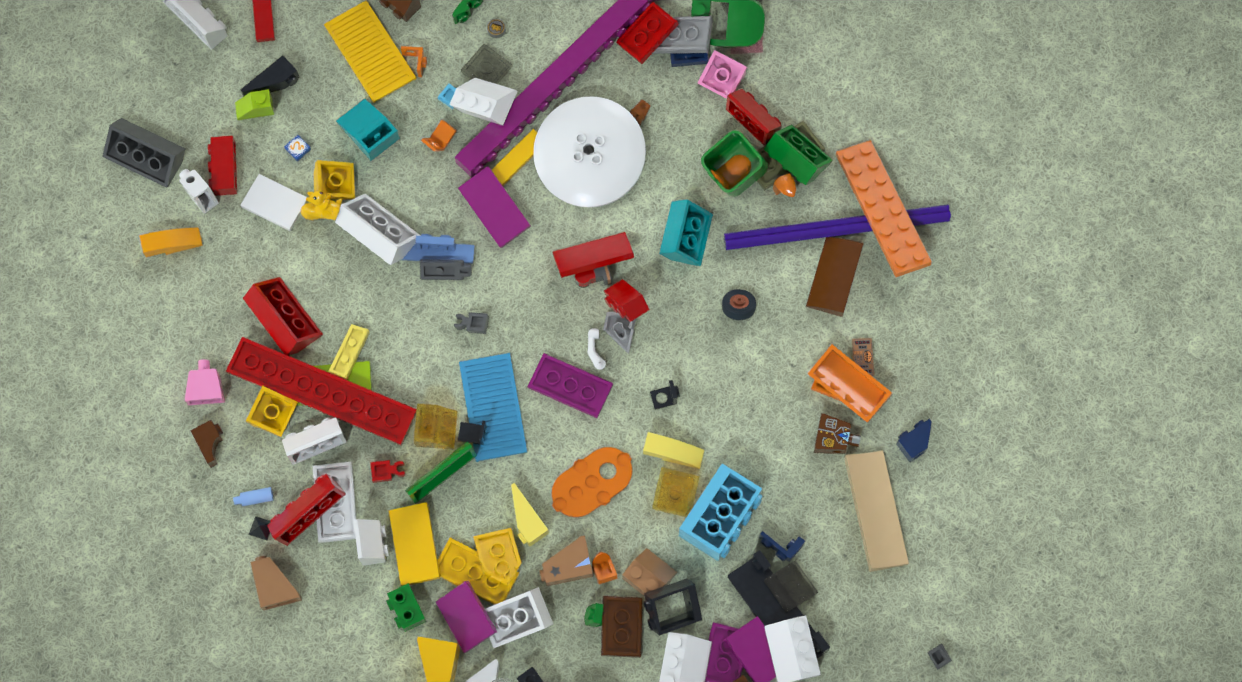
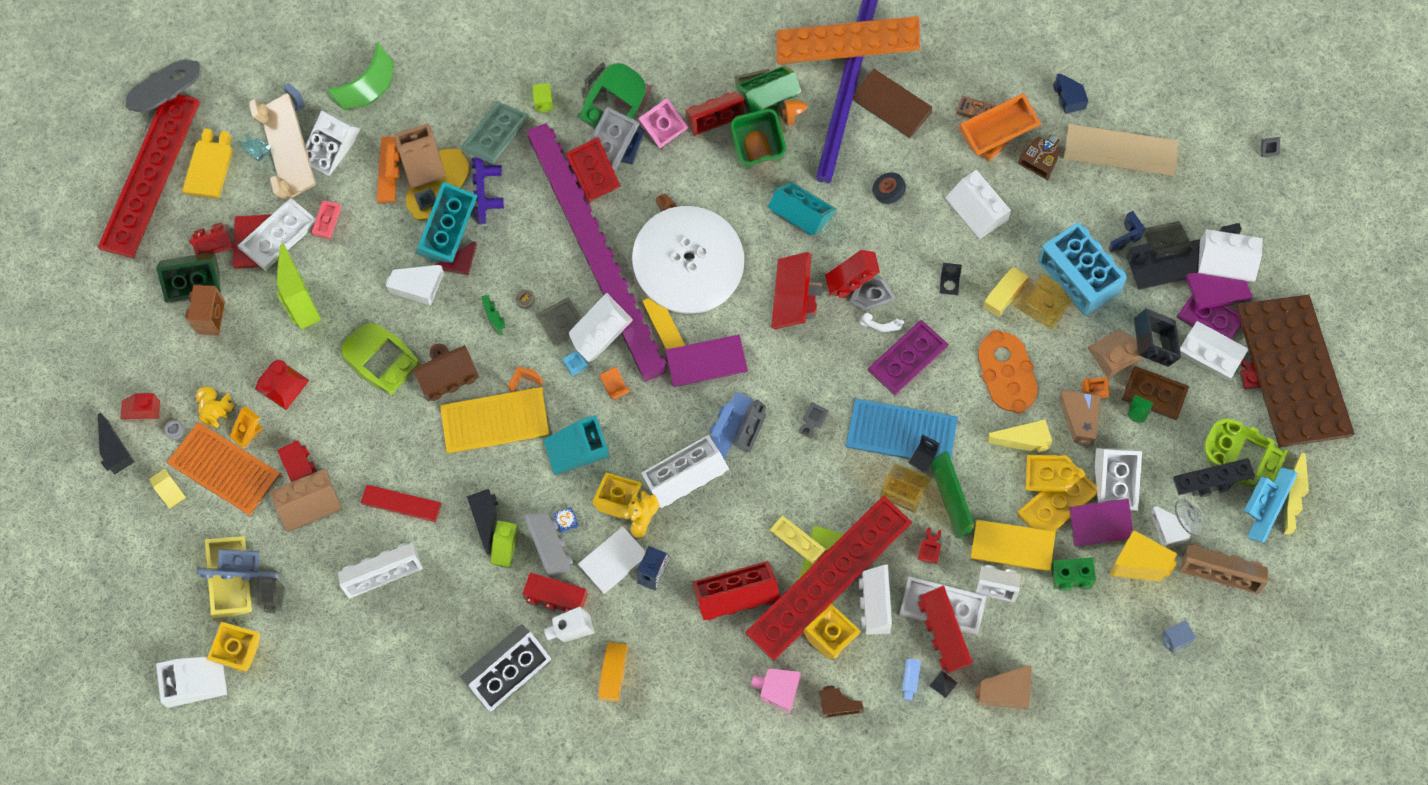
camera: 65 degrees left, 5 degrees down
(264, 139) = (549, 544): none -> light grey slope
(276, 236) = (653, 566): none -> dark blue torso
(755, 394) = (978, 204): none -> white slope

